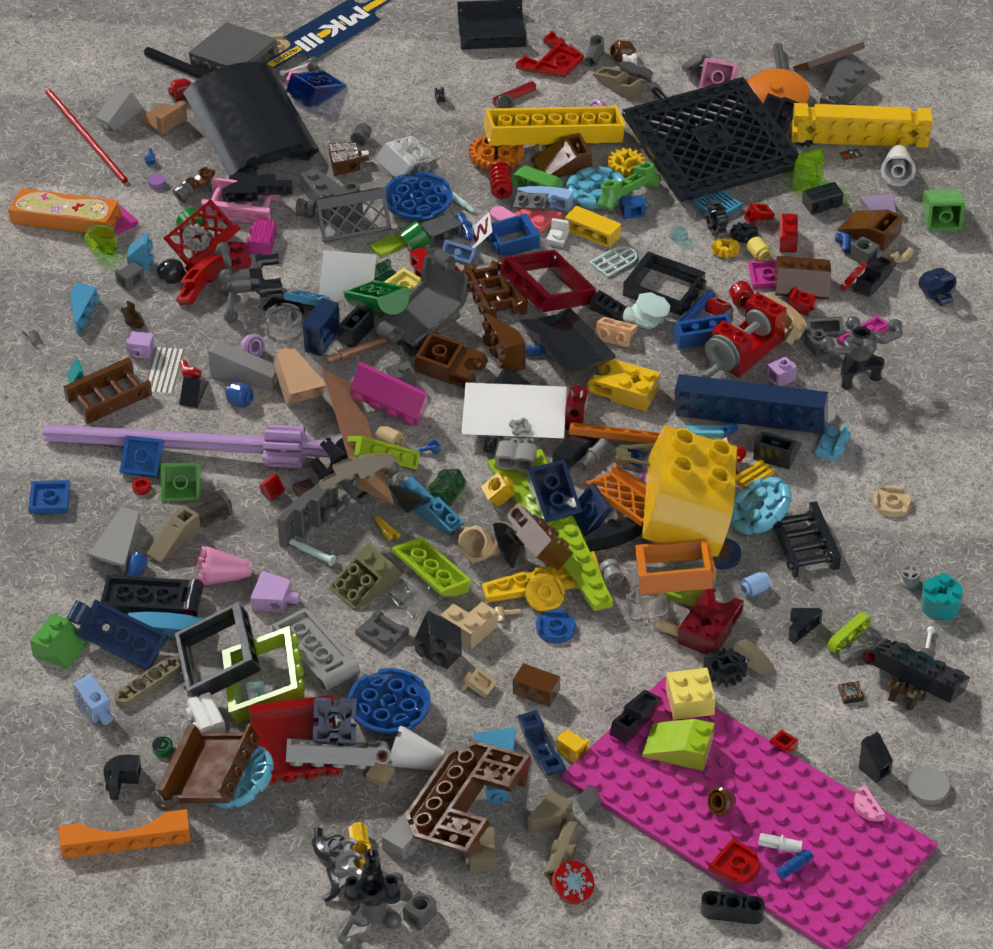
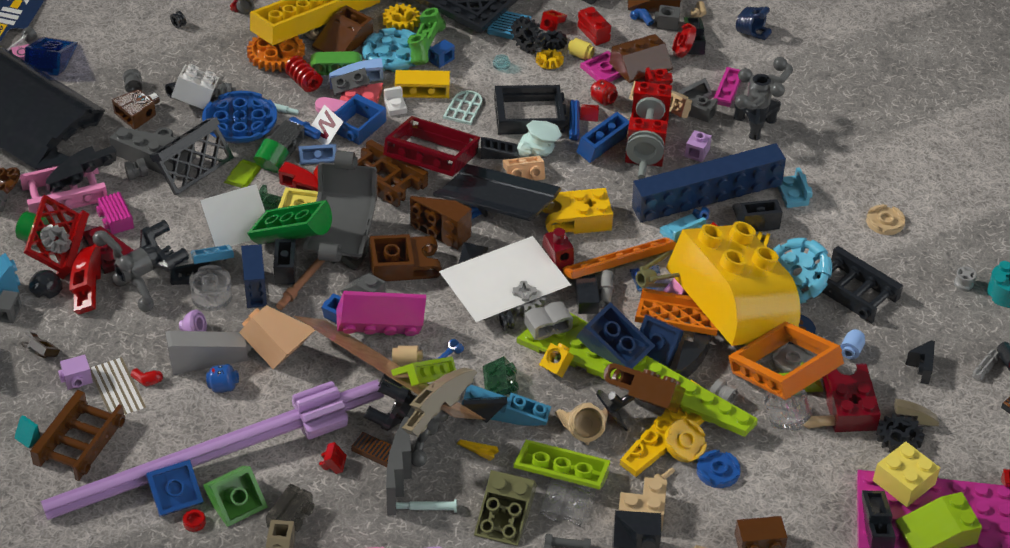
camera: 35 degrees left, 0 degrees up
(192, 391) = (169, 397): black slope -> none
(849, 632) = (967, 352): lime beam -> none

